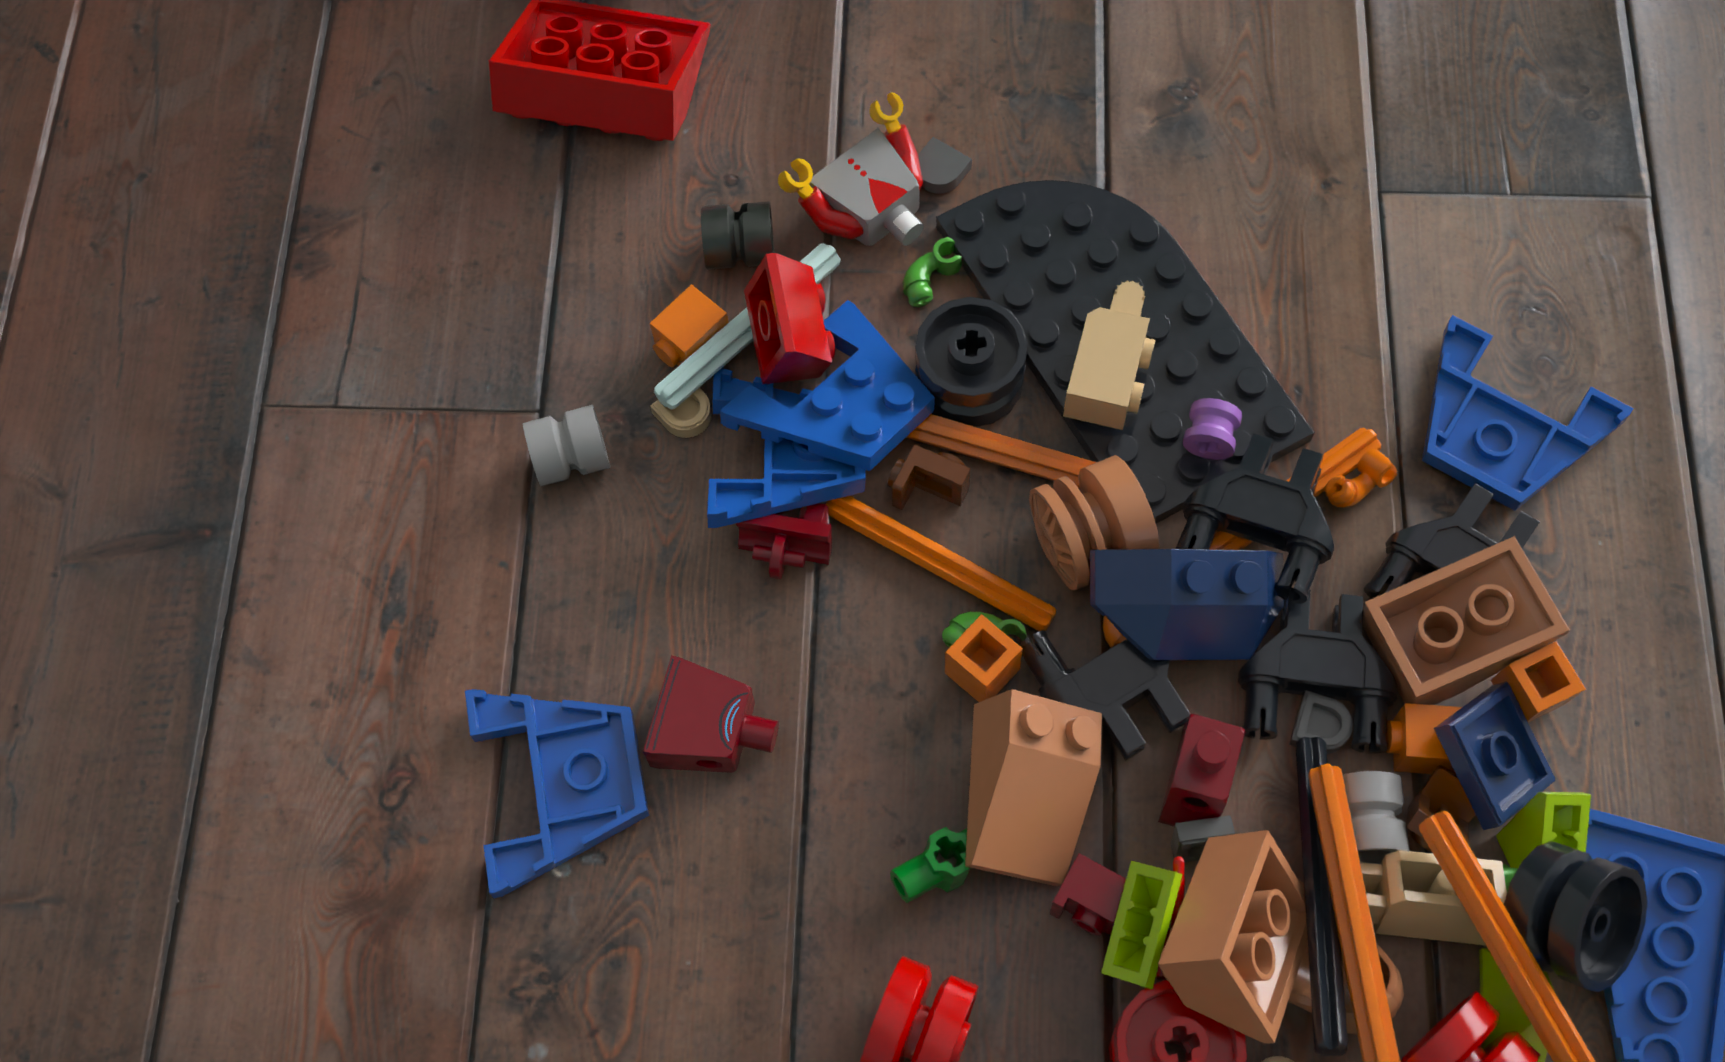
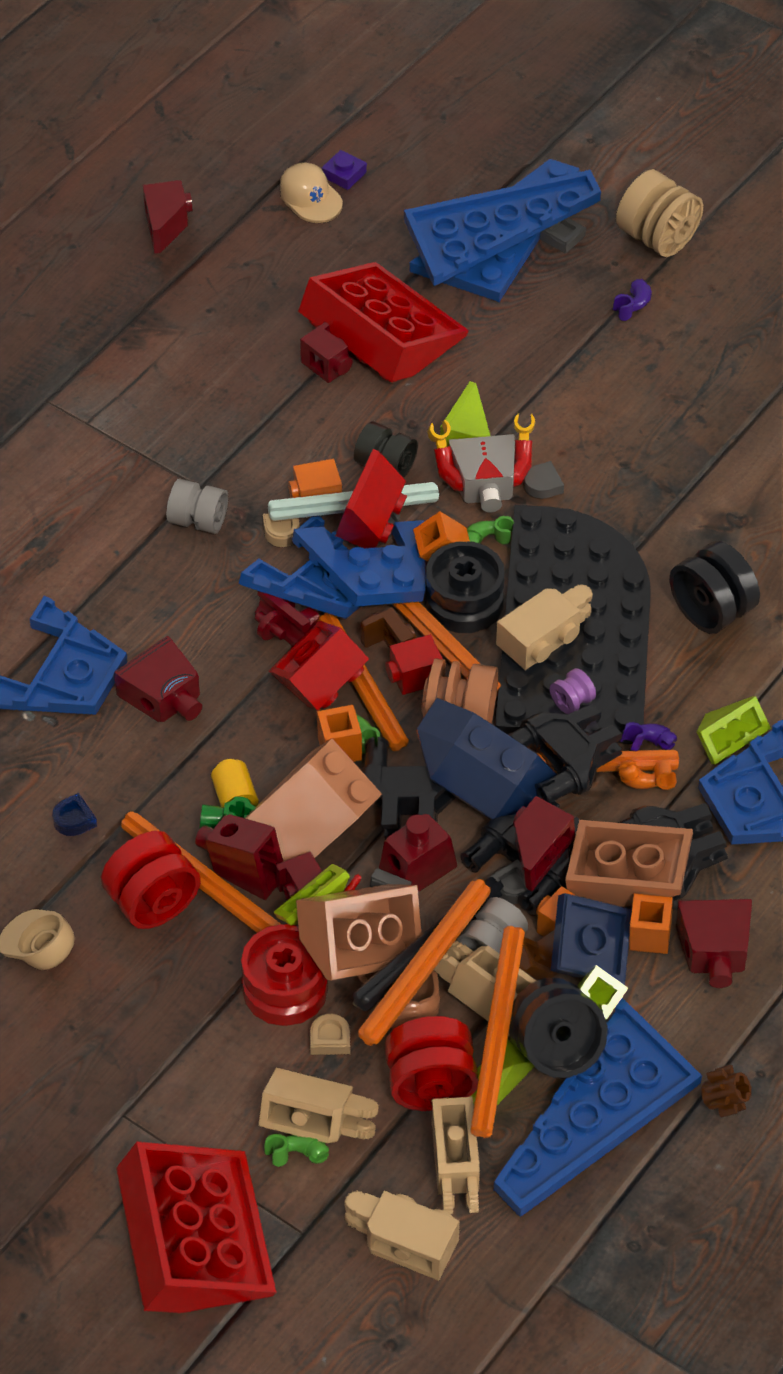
camera: 30 degrees right, 15 degrees down
(231, 68) = (166, 211): none -> dark red slope
(567, 147) = (325, 353): none -> dark red brick
(728, 984) = (73, 816): none -> clear blue tile
(799, 135) = (467, 416): none -> lime slope
(882, 576) = (320, 665): none -> red slope
(896, 316) = (438, 532): none -> orange brick
(903, 812) = (233, 780): none -> yellow brick
(981, 969) = (211, 883): none -> orange axle
(989, 501) = (412, 663): none -> red brick
(1013, 909) = (243, 853): none -> dark red torso
(1258, 193) = (714, 587): none -> black wheel
(1320, 424) = (655, 733): none -> dark purple arm
(1344, 661) = (541, 838): none -> dark red slope
(1396, 358) = (731, 728): none -> lime slope
(1617, 649) = (715, 937): none -> dark red torso

